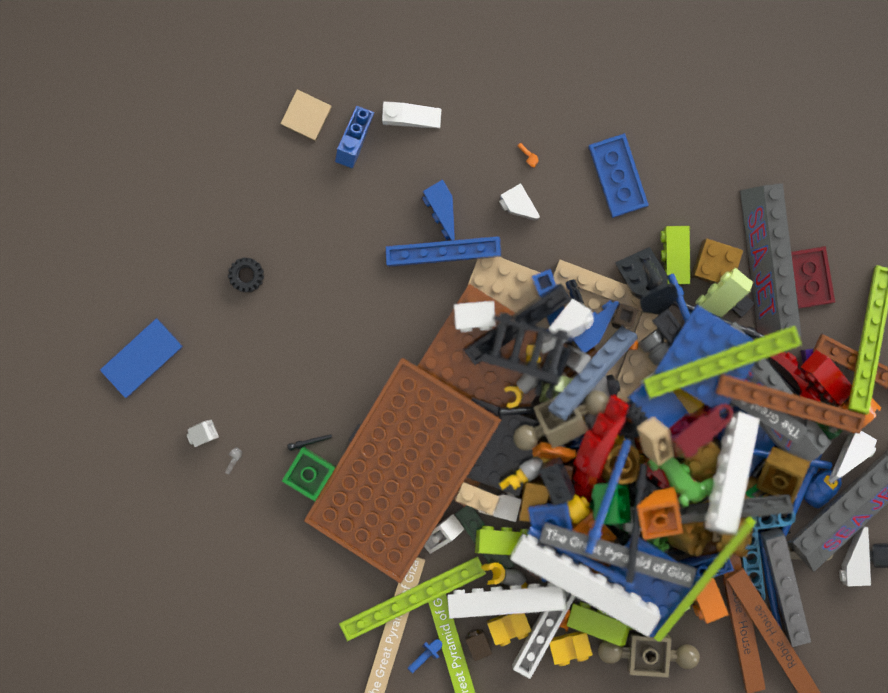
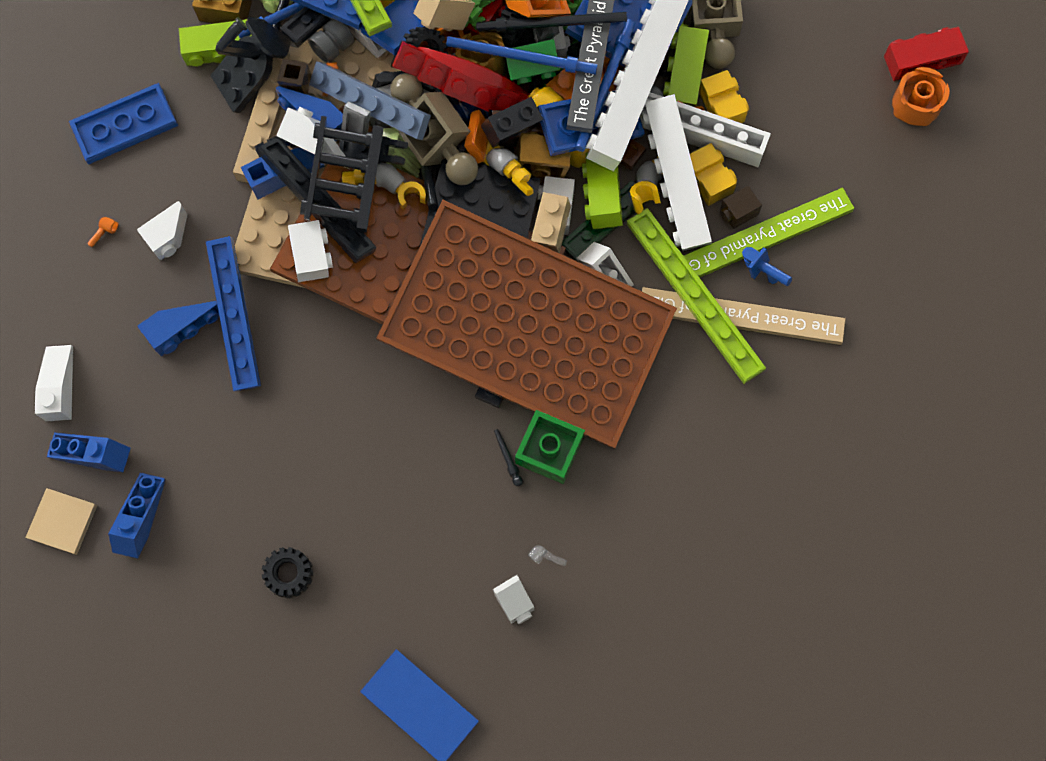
camera: 90 degrees left, 15 degrees down
(302, 170) = (136, 516): none -> blue slope

